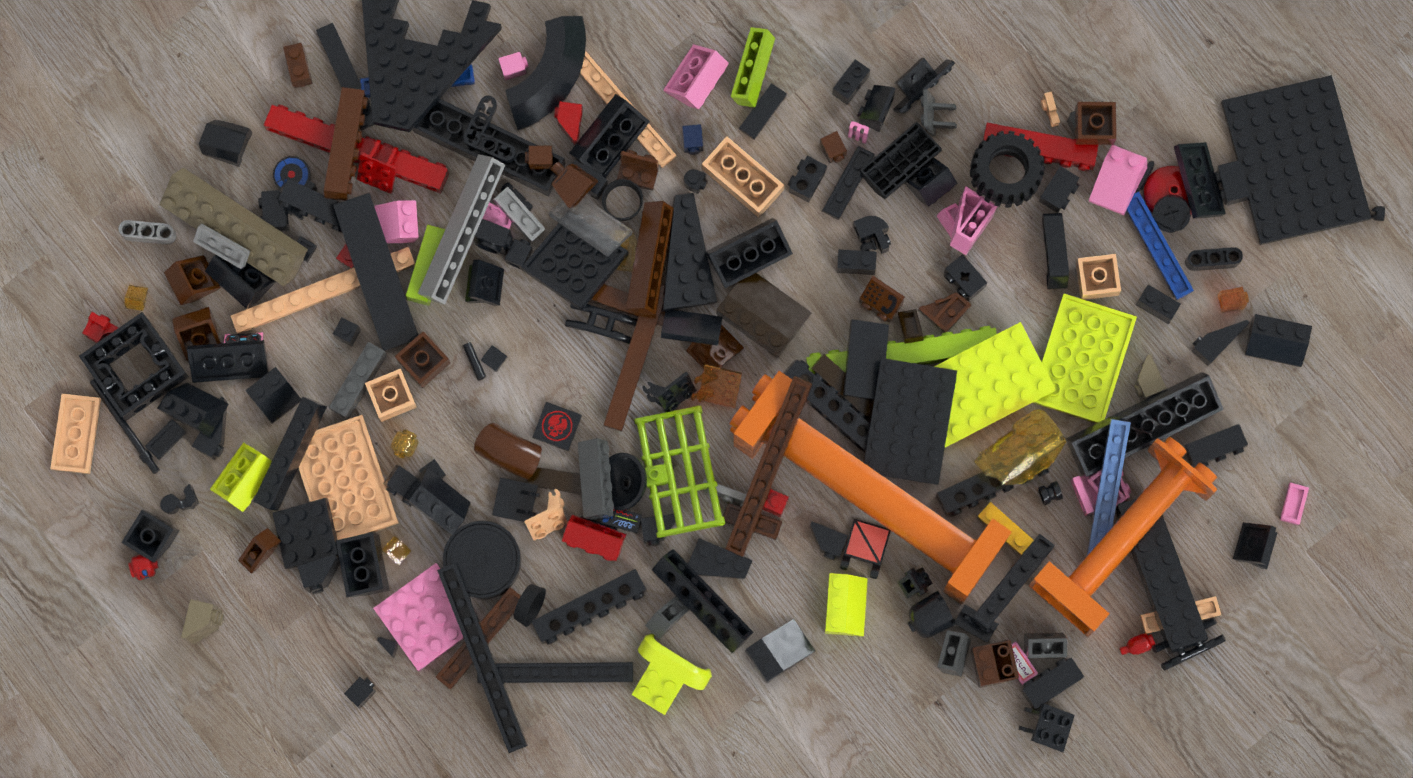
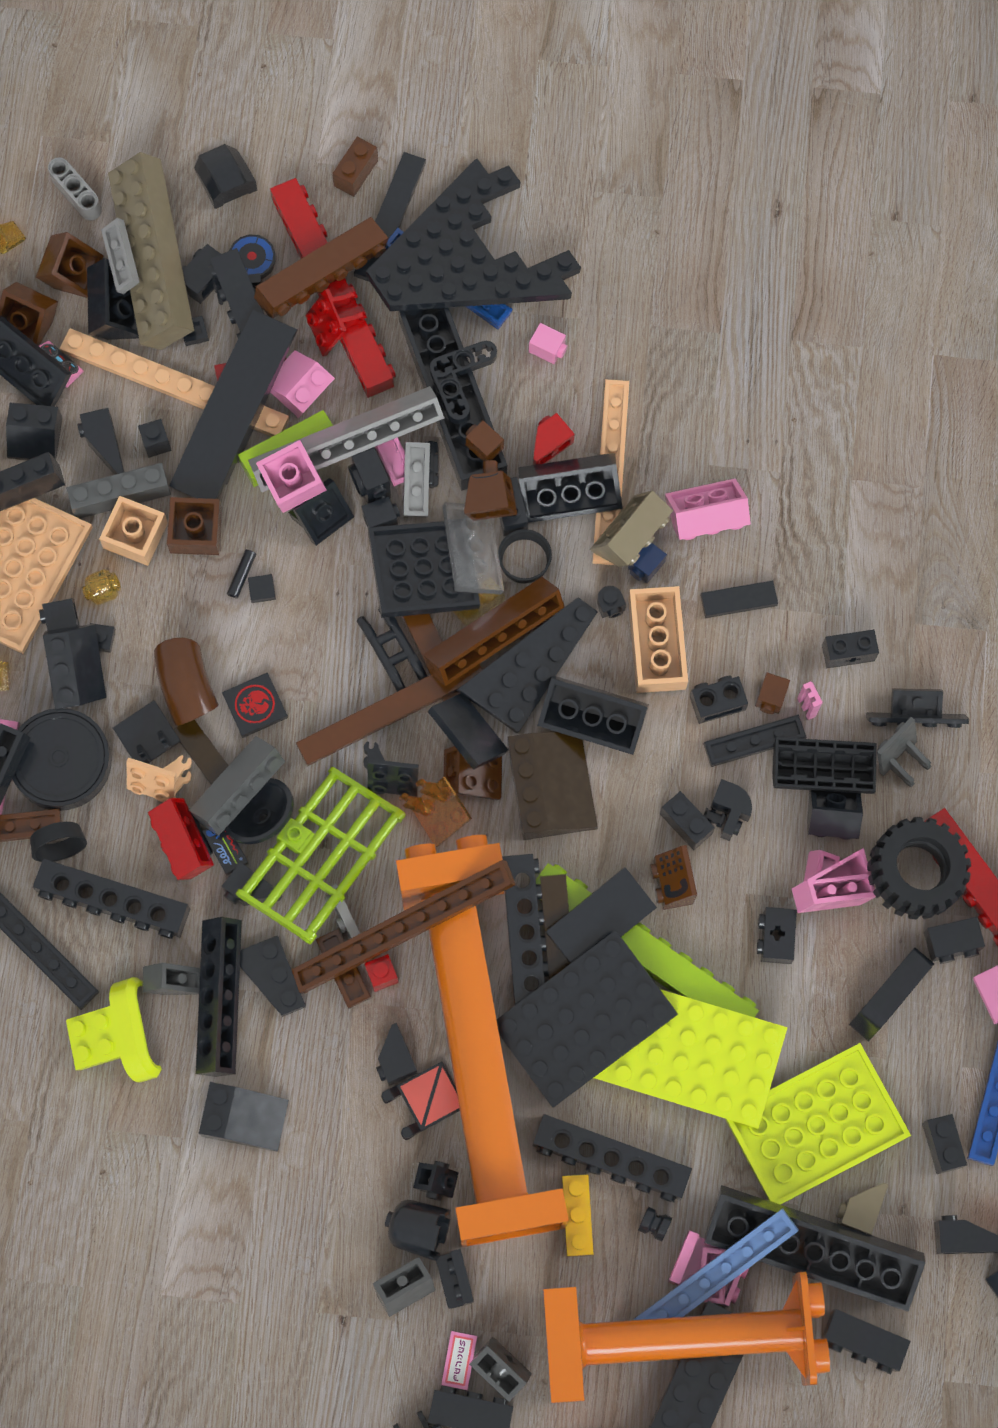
camera: 40 degrees right, 5 degrees down
(316, 361) = (101, 438): none -> black slope
(454, 279) = (291, 476): none -> bright pink slope
(554, 74) = (576, 384): black brick -> none
(638, 169) = (568, 543): reddish brown bracket -> none
(668, 128) = (633, 529): none -> dark tan slope
(753, 67) = (769, 548): lime brick -> none
(846, 605) = (349, 1136): neon yellow slope -> none
(877, 106) = (851, 695): black slope -> none
(910, 326) = (678, 930): dark brown tile -> none
(946, 311) = (727, 950): reddish brown wing -> none
(994, 663) = (433, 1337): reddish brown slope -> none
(1012, 582) = (529, 1274): black tile -> none
(1024, 450) = (666, 1156): clear yellow slope -> none
(1098, 277) = (909, 1059): light nougat brick -> none

